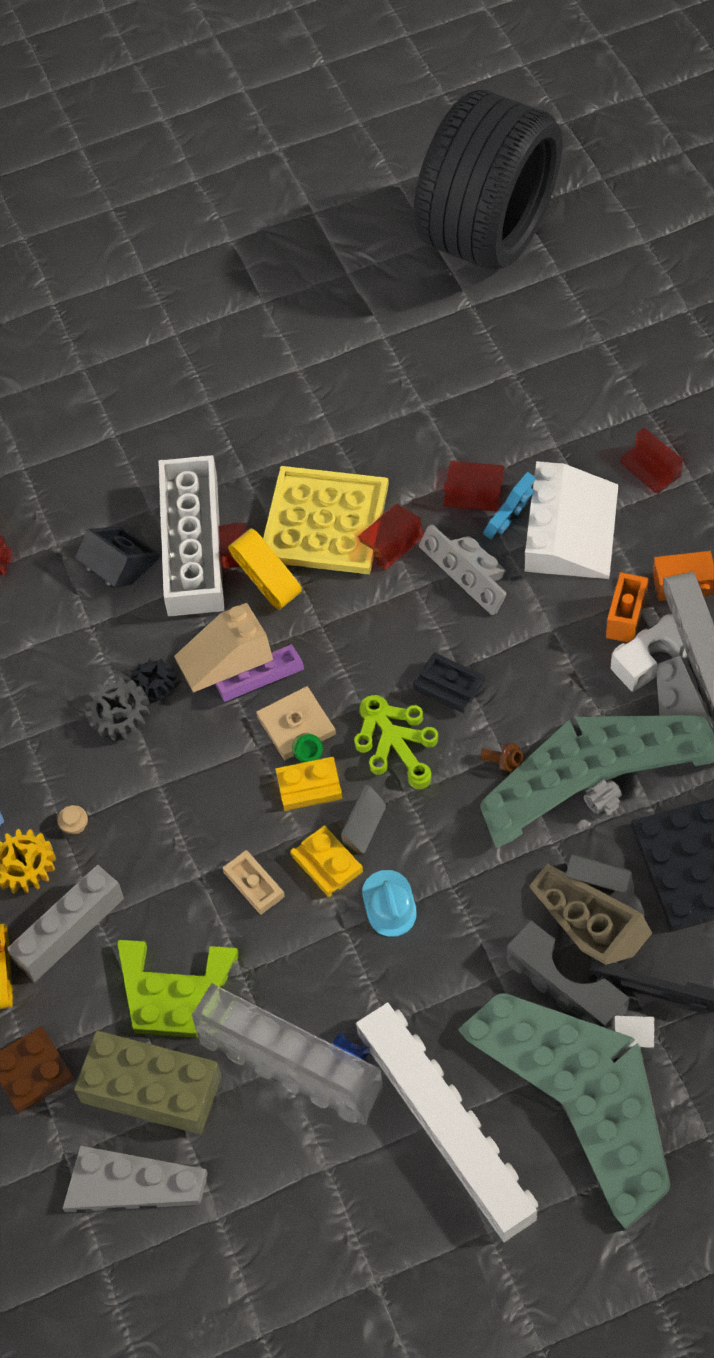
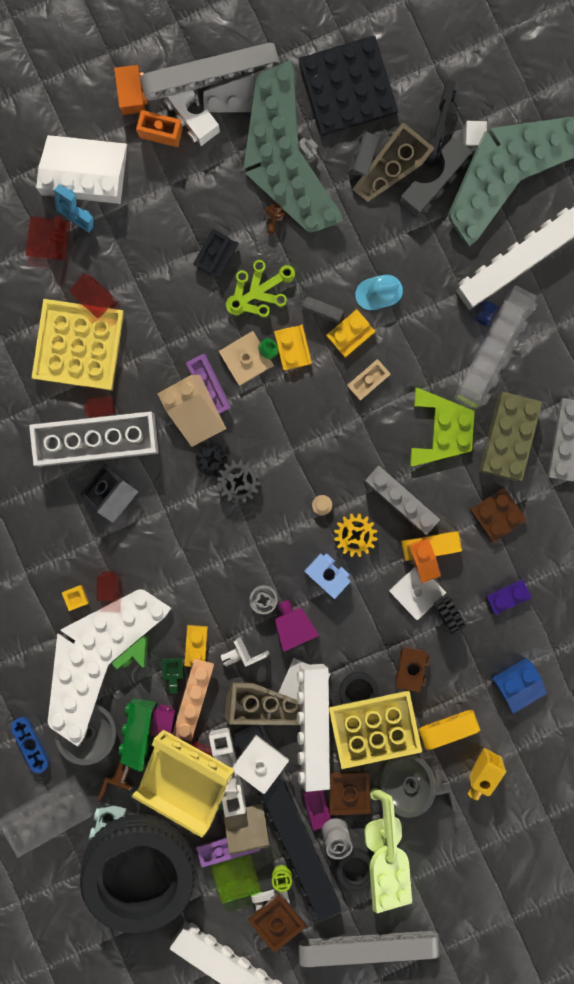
camera: 95 degrees left, 30 degrees up
(265, 569) = (126, 383): yellow beam -> none
(468, 566) = (119, 241): light grey bracket -> none
(652, 462) = (29, 109): clear red panel -> none

